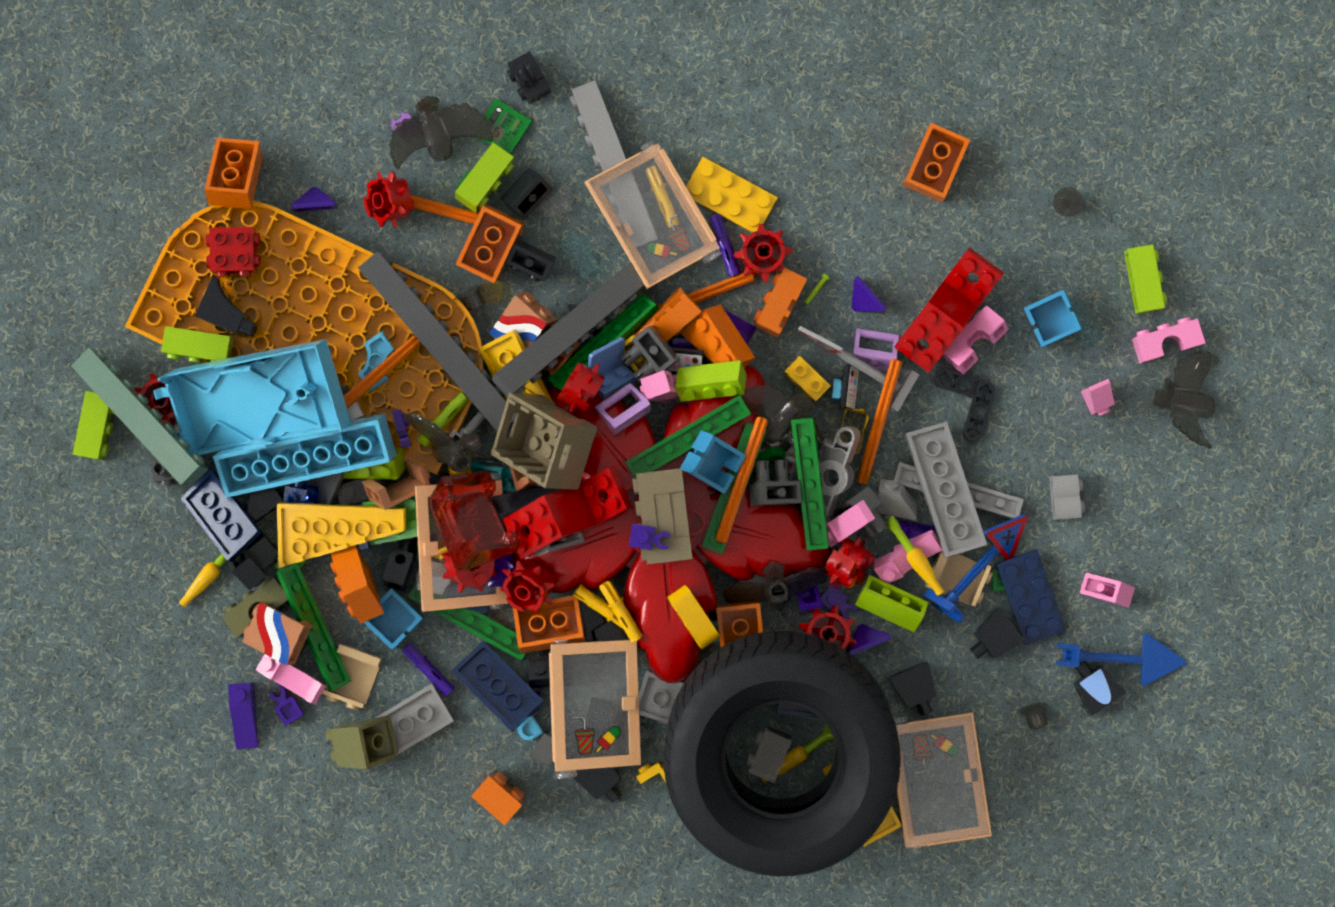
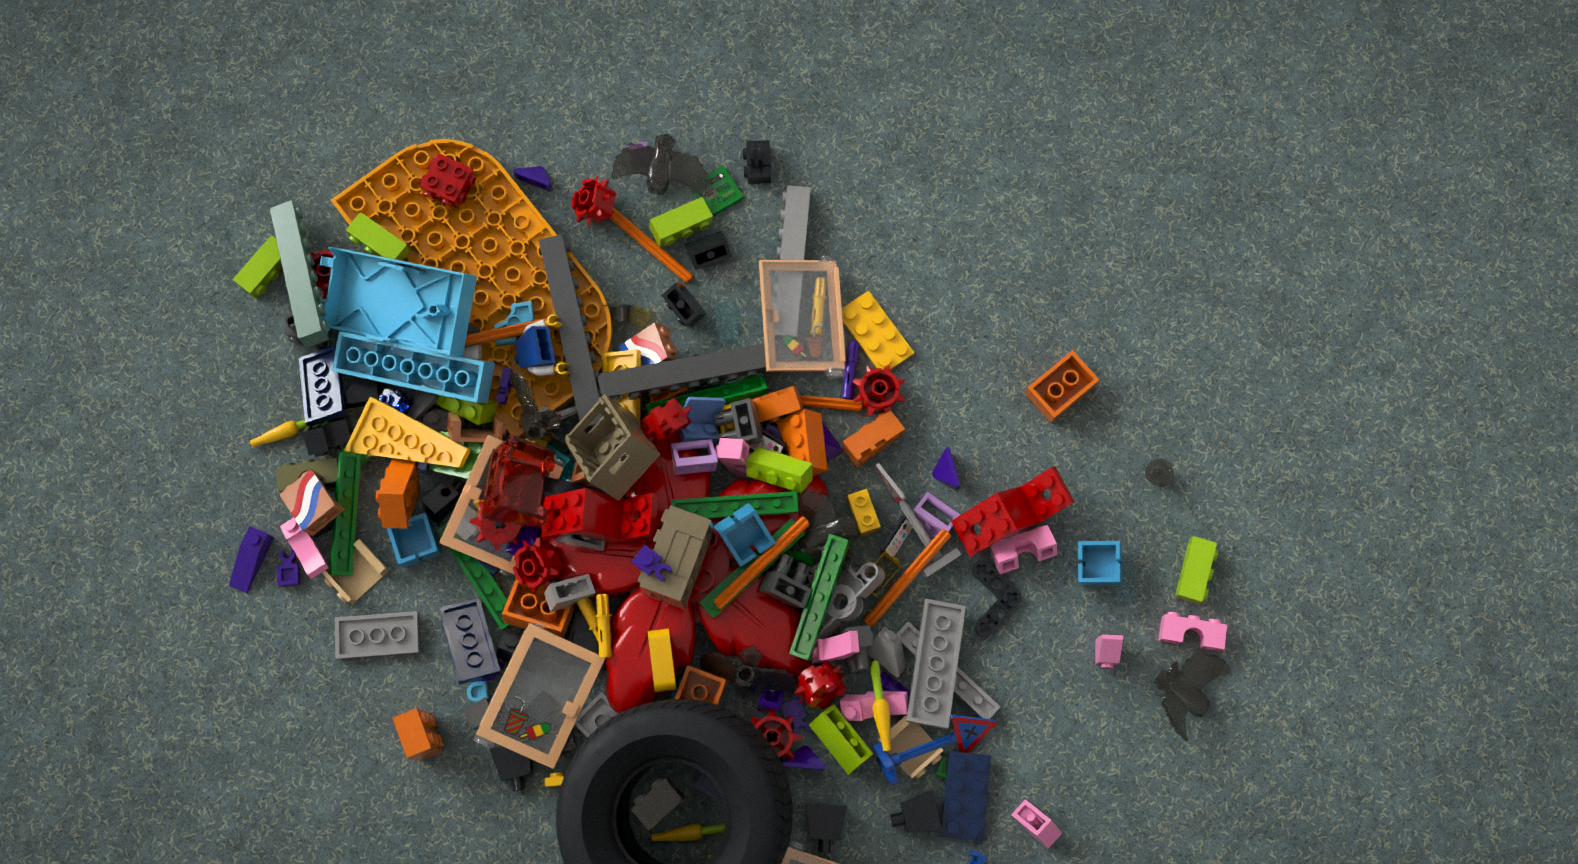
camera: 30 degrees right, 10 degrees down
(221, 312) = (410, 220): black hips -> none
(233, 173) = (482, 122): orange brick -> none
(363, 743) = (333, 631): olive hips -> none
(415, 378) = (536, 348): none -> blue torso
(428, 669) = (421, 599): dark purple axle -> none
(447, 415) = (547, 394): lime axle -> none
(489, 243) = (656, 274): orange brick -> none
(572, 597) = (569, 591): none -> light grey arch
(824, 278) = (910, 443): lime piece -> none
(836, 390) = (884, 534): medium azure tile -> none
(1066, 497) = (1038, 723): light grey brick -> none

